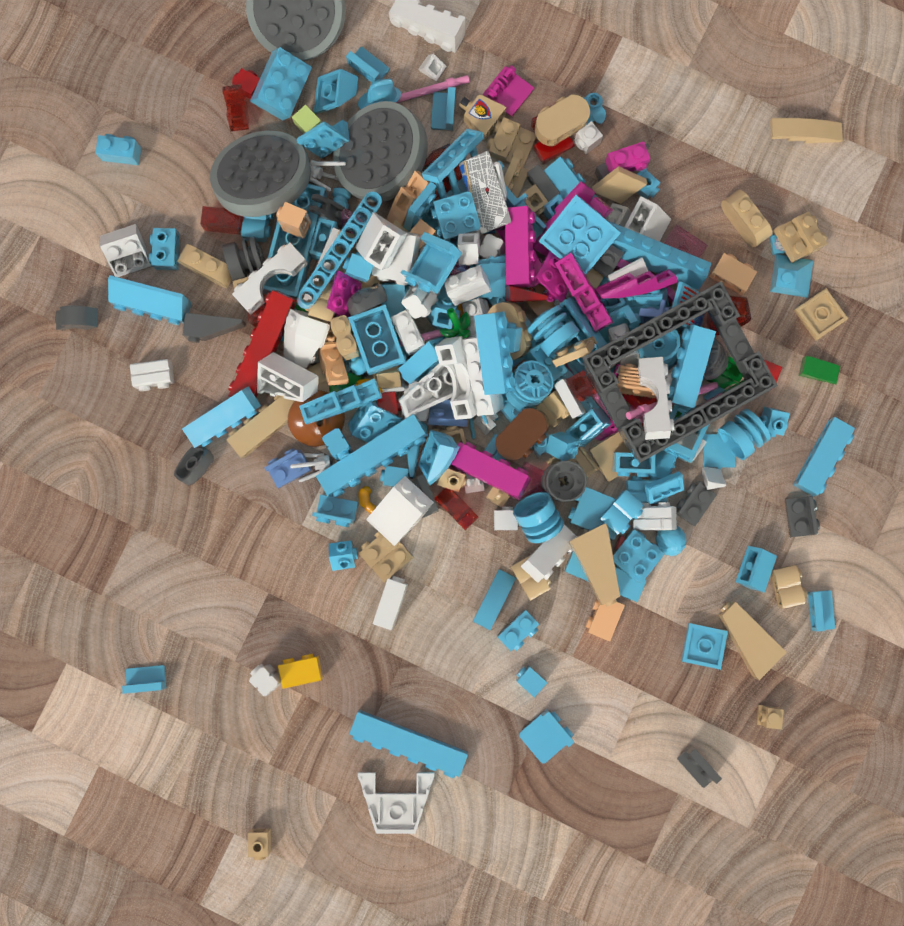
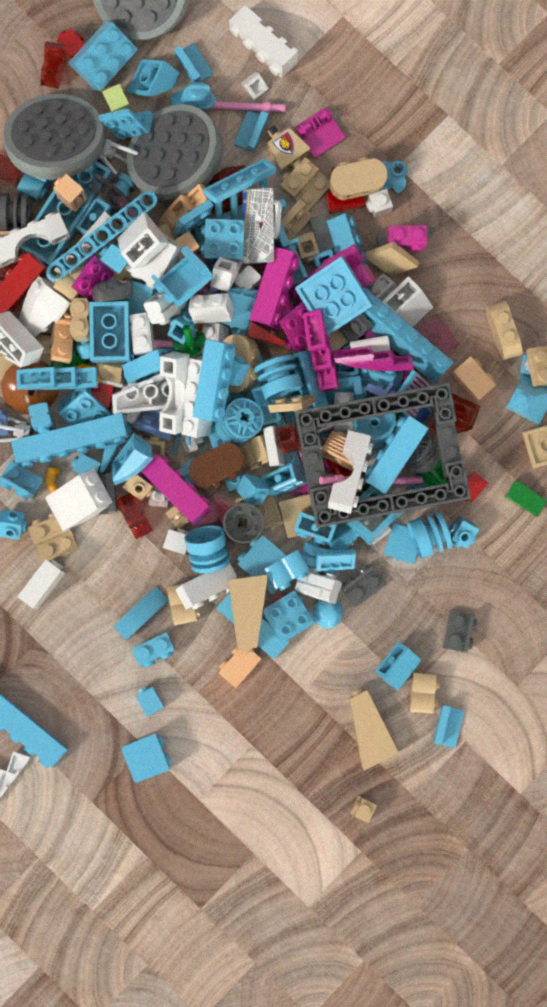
camera: 10 degrees right, 0 degrees up
(651, 189) = (422, 273): medium azure brick -> none
(698, 767) = (279, 833): dark grey bracket -> none
(704, 646) = (325, 722): medium azure plate -> none
(713, 478) = (388, 567): white slope -> none
(824, 457) = (500, 581): medium azure brick -> none

